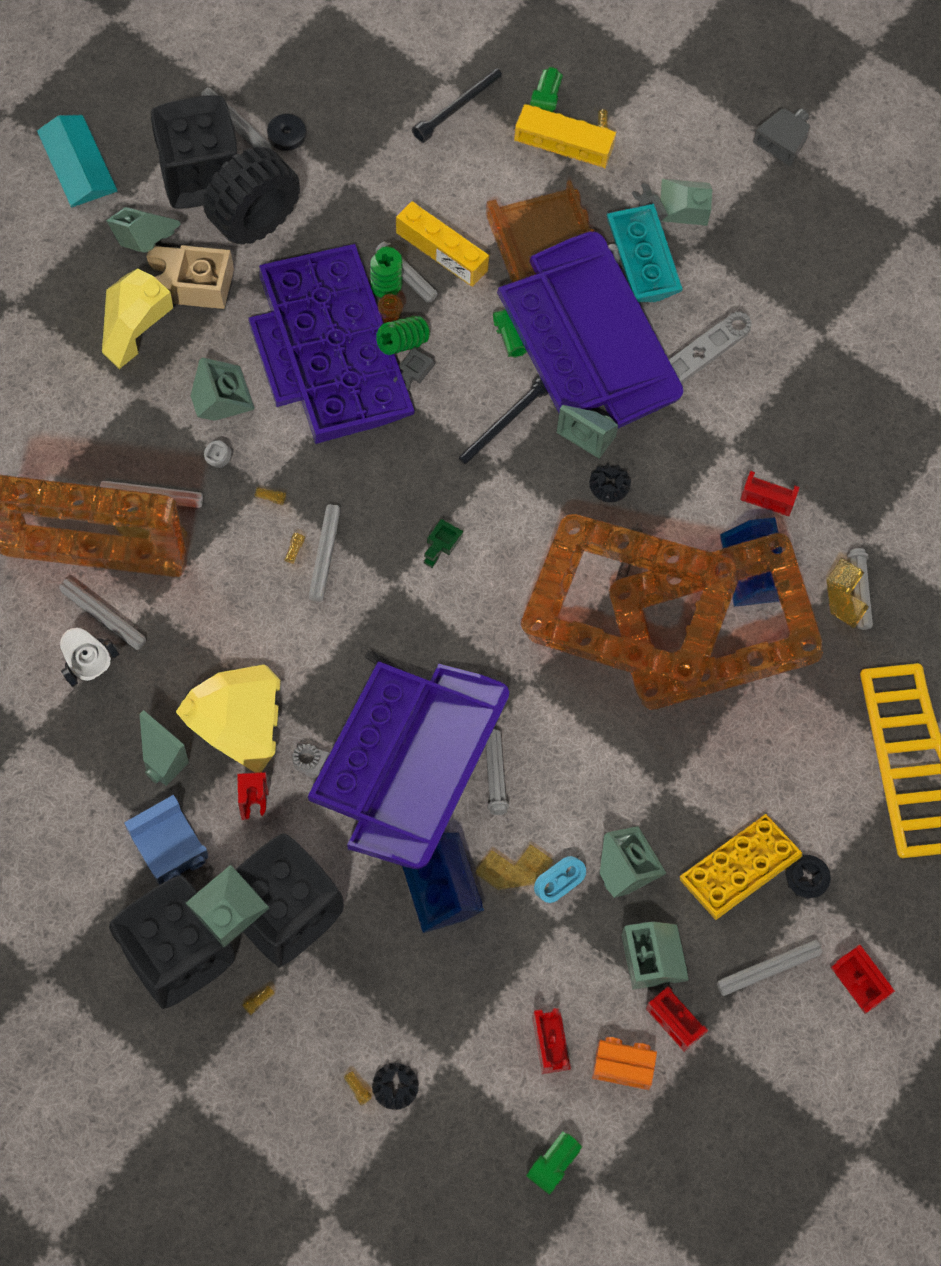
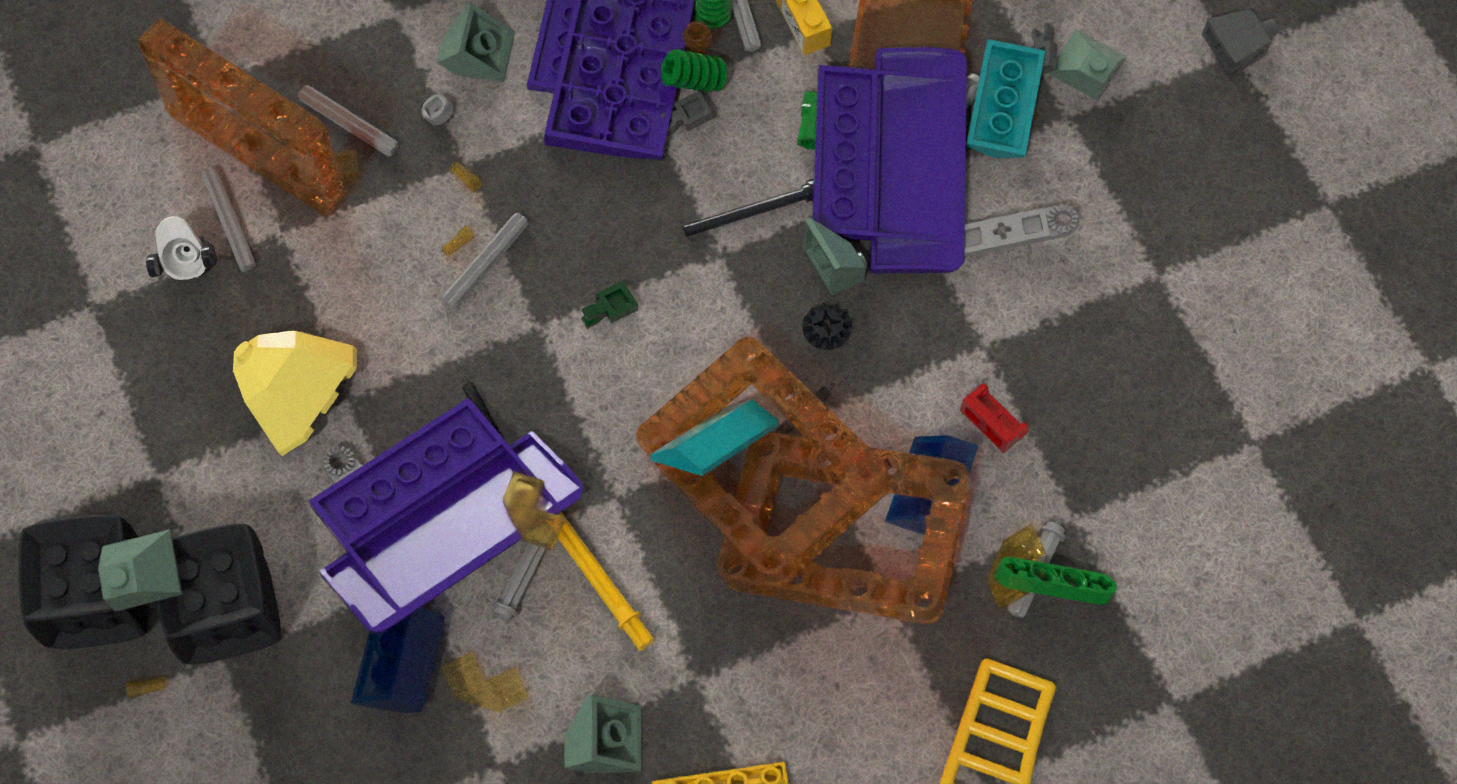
camera: 30 degrees right, 0 degrees up
(162, 752) = (194, 383): sand green slope -> none
(166, 840) = (152, 477): medium blue panel -> none
(252, 790) = (256, 467): red hinge -> none
(488, 730) = (531, 523): none -> clear yellow tile
(560, 881) = (522, 721): medium azure plate -> none
(565, 754) = (614, 600): none -> yellow axle
(587, 601) = (717, 438): none -> teal slope
(882, 589) = (1020, 575): none -> green beam

